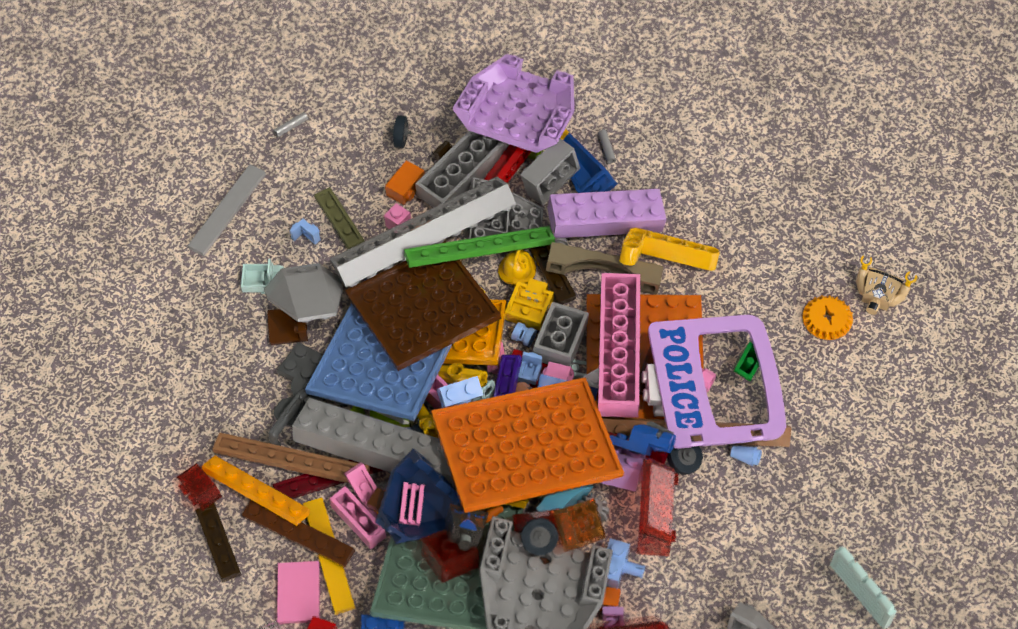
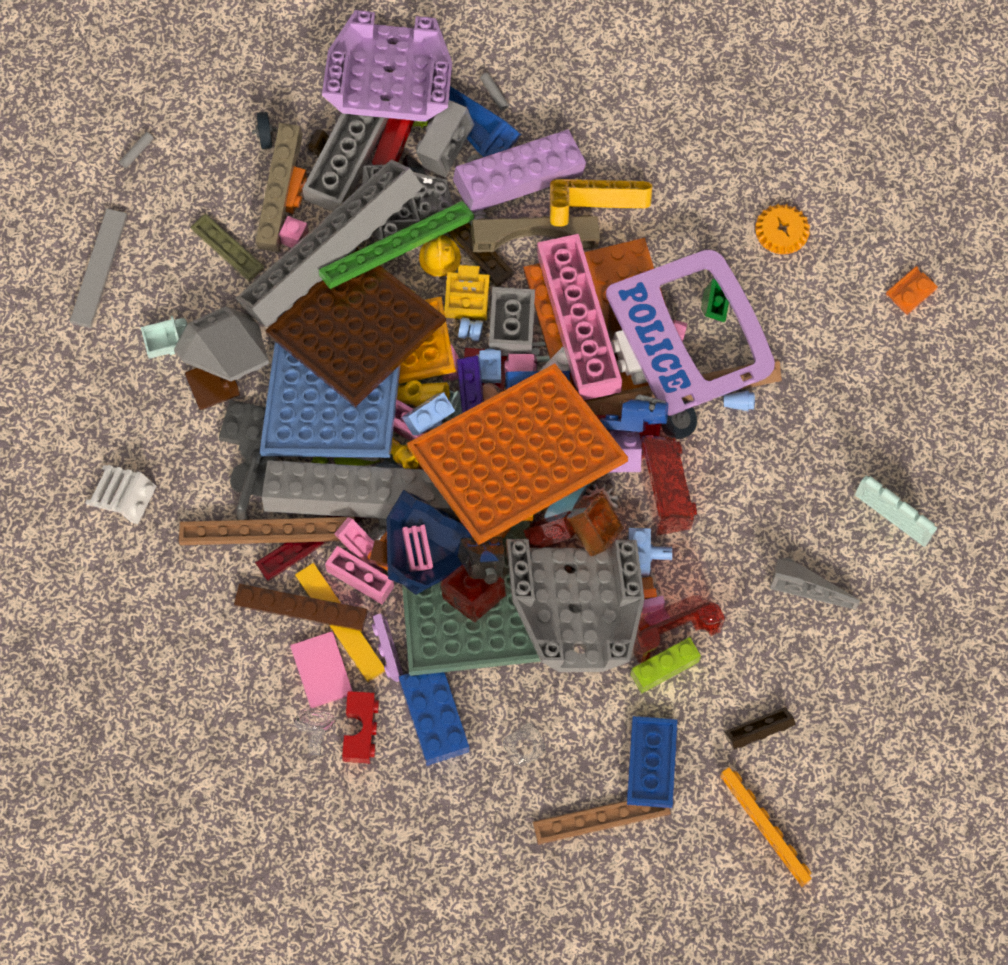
camera: 20 degrees left, 10 degrees up
(181, 396) = (131, 494): none -> white plate
(199, 487) = (179, 587): clear red brick -> none
(218, 543) = (219, 640): dark brown plate -> none
(256, 490) = (240, 574): light orange plate -> none
(309, 231) = (199, 270): light blue bracket -> none
(362, 586) = (387, 647): none -> lavender plate
(410, 152) = (275, 199): none -> dark tan arch
(516, 188) = (409, 162): none -> black tile
(539, 536) = (560, 547): black wheel -> none
(881, 288) = (829, 183): tan torso -> none
(932, 398) = (911, 290): none -> orange plate

